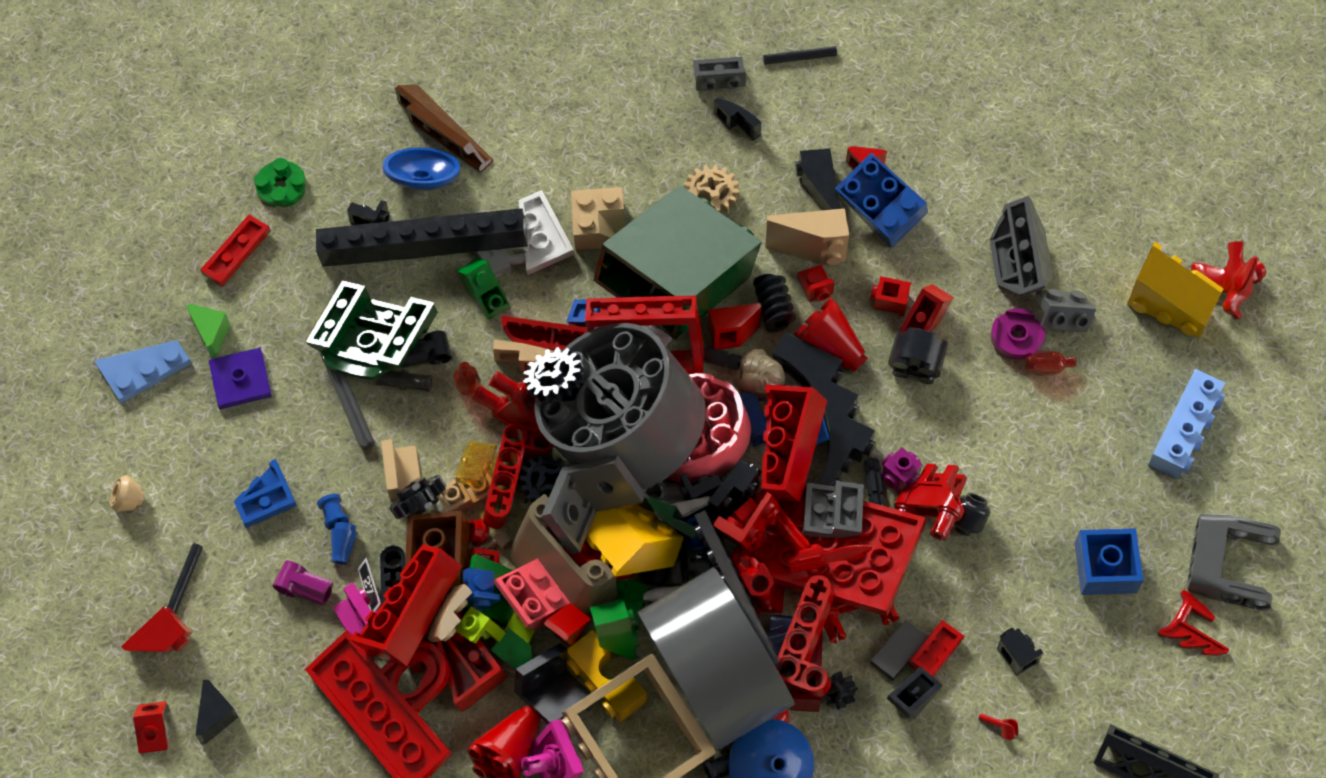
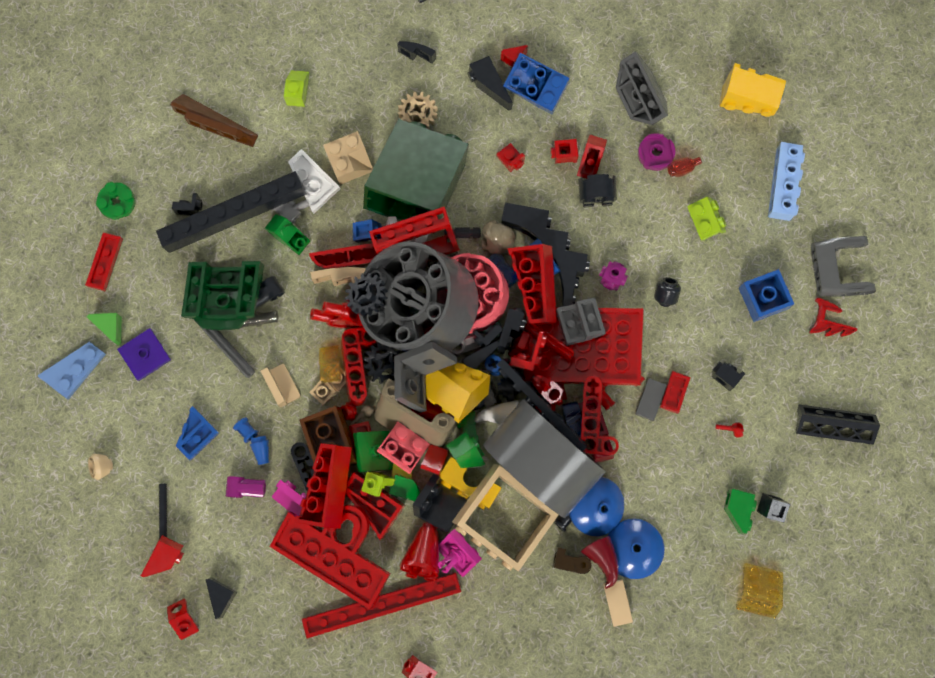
camera: 20 degrees left, 15 degrees up
(369, 585) = (290, 474): sticker -> none
(417, 496) = (301, 403): black gear -> none
(421, 168) = (211, 159): blue dish -> none
(445, 619) = (354, 489): tan slope -> none
(466, 379) = (301, 306): clear red plant -> none
(482, 587) = (367, 456): blue bracket -> none
(563, 118) = (296, 88): none -> lime slope
(667, 512) = (473, 362): dark green slope -> none
(719, 73) = (392, 20): dark grey bracket -> none
(733, 325) = (467, 208): red slope -> none
(774, 302) = (488, 181): black piece -> none
(810, 235) = (499, 126): tan slope -> none
(816, 557) = (582, 360): red piece -> none
(834, 335) = (537, 194): red cone -> none
(841, 690) = (625, 441): black gear -> none
(874, 481) = (597, 289): black axle -> none
(915, 693) = (672, 428): black slope -> none
(935, 497) = (642, 289): red connector -> none
(1060, 438) = (706, 218): none -> lime bracket
(1065, 310) = (683, 125): dark grey bracket -> none
(1235, 278) = (787, 67): red animal -> none

